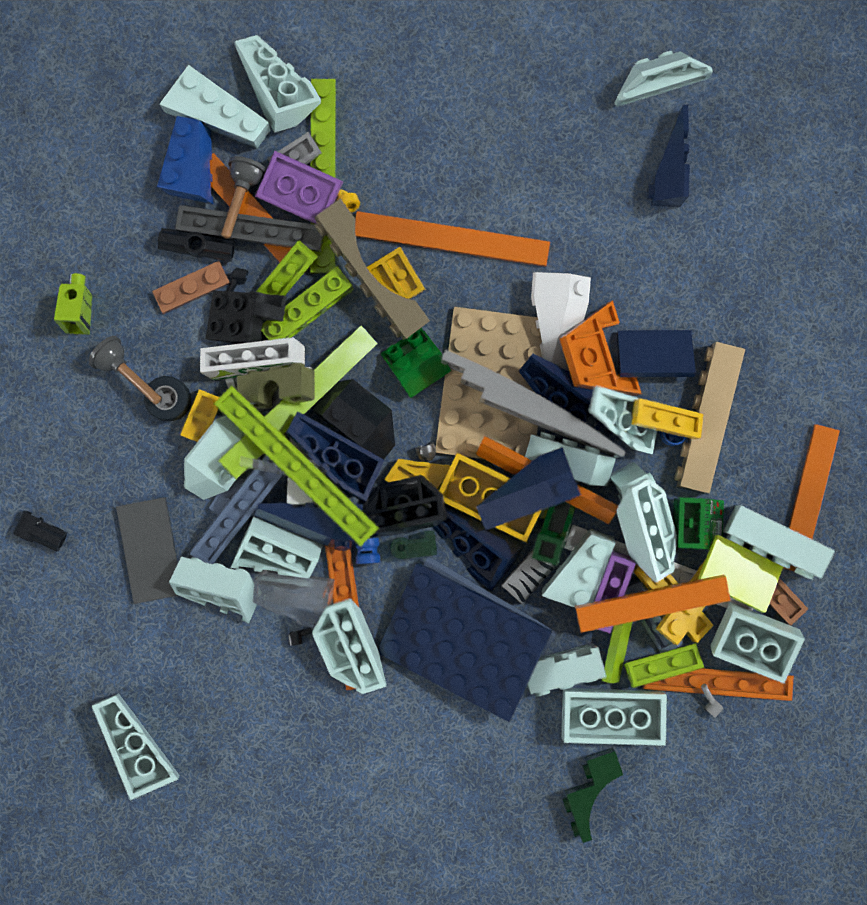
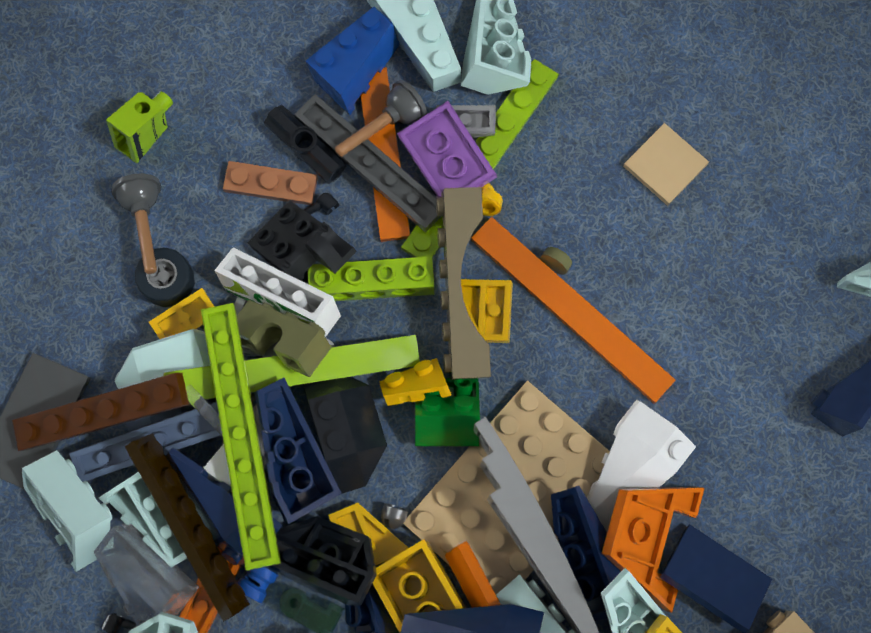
camera: 35 degrees right, 10 degrees down
(194, 513) = (101, 411): none -> reddish brown plate
(288, 270) = (379, 229): lime tile -> none
(301, 545) = (187, 526): none -> dark brown plate
(383, 357) = (414, 382): none -> yellow wing
(420, 212) = (556, 260): none -> olive tile
(449, 95) = (666, 164): none -> tan tile

